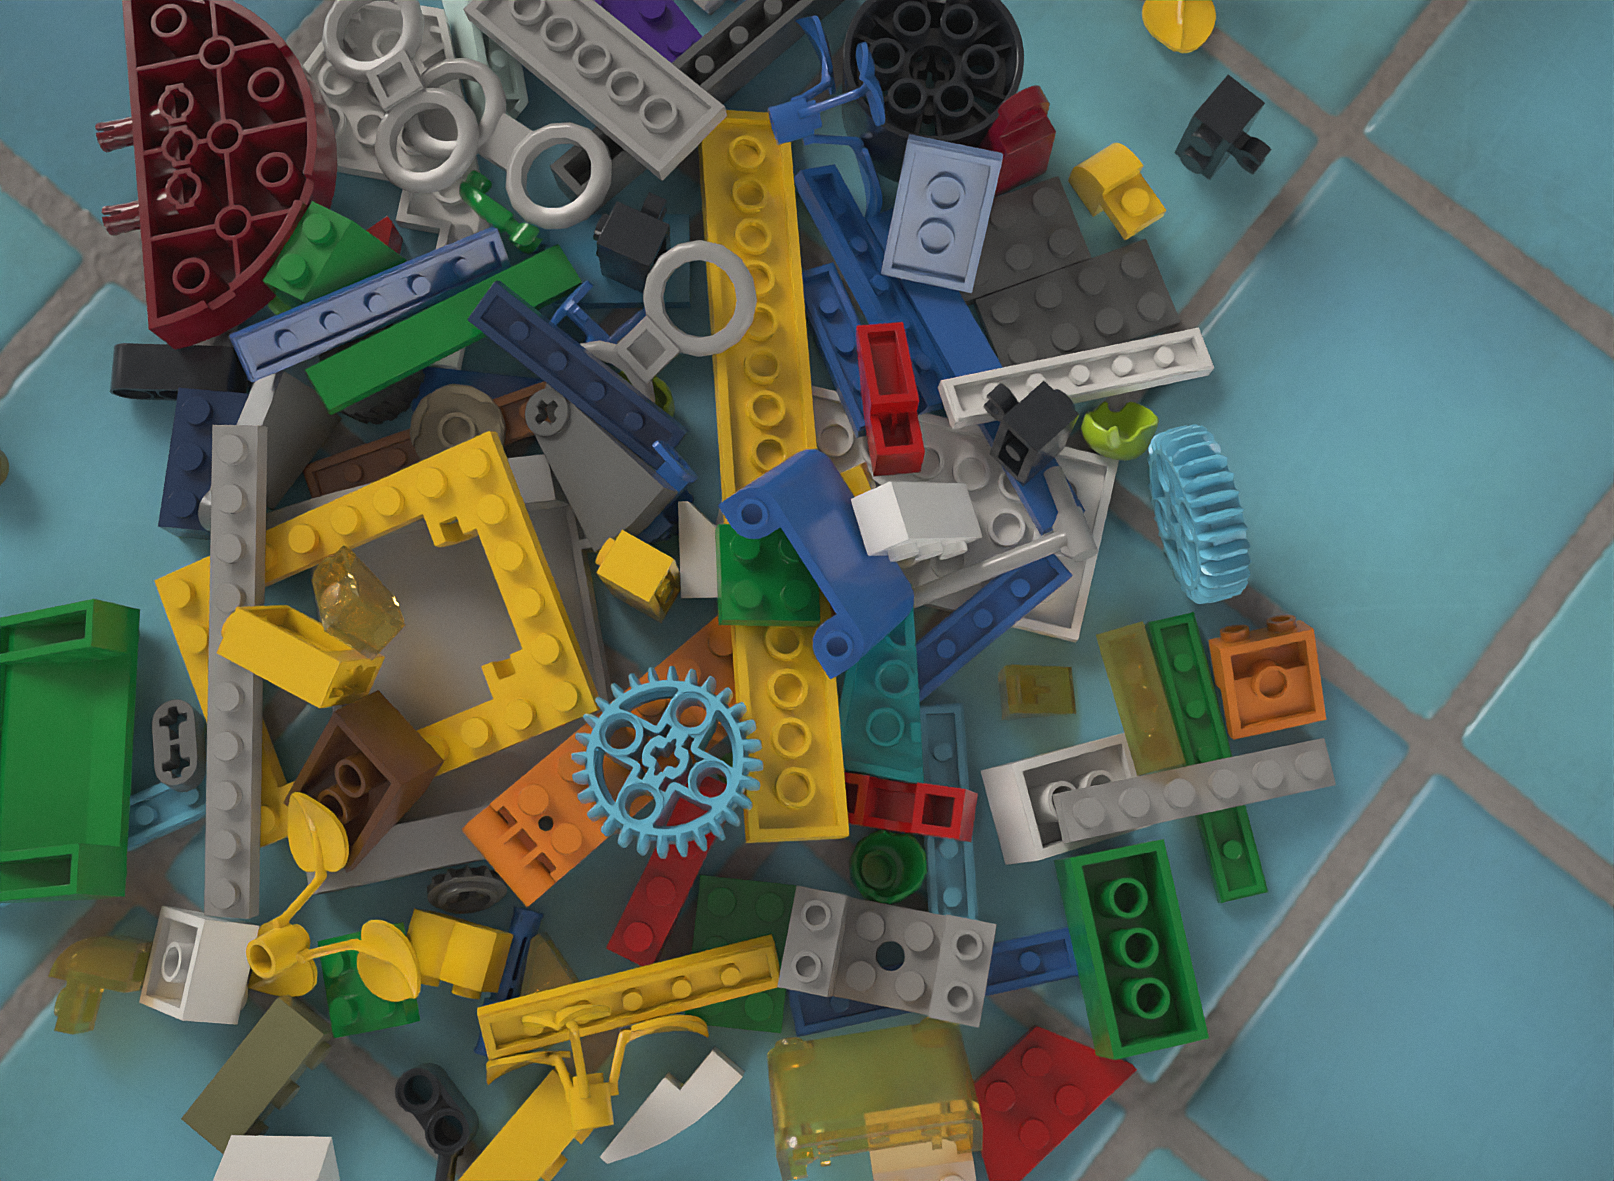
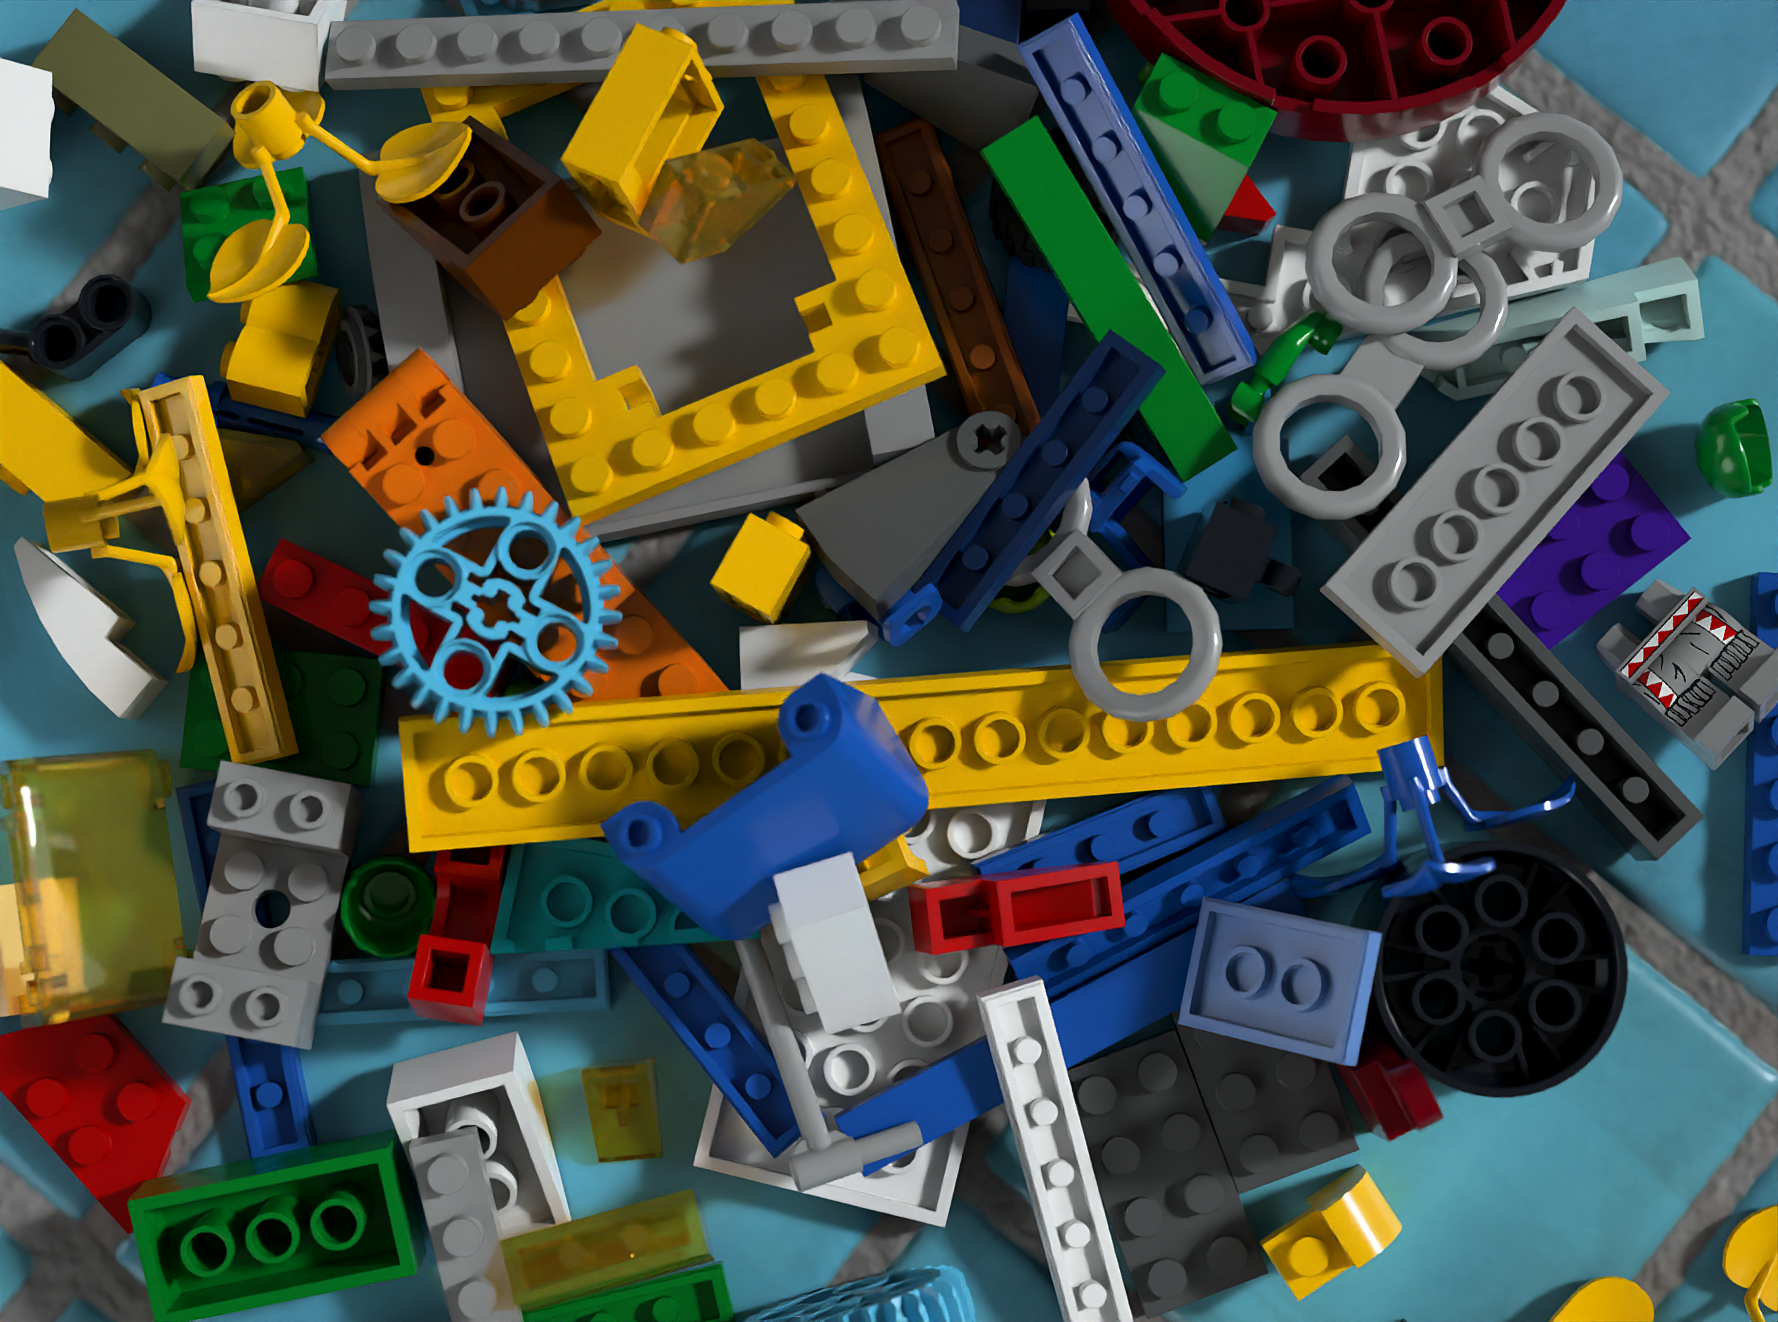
camera: 90 degrees right, 5 degrees up
(453, 417) = (978, 319): dark tan tile -> none
(763, 581) = (736, 731): green plate -> none
(1031, 429) = (963, 1100): black brick -> none
(1120, 433) = (984, 1229): lime hair -> none

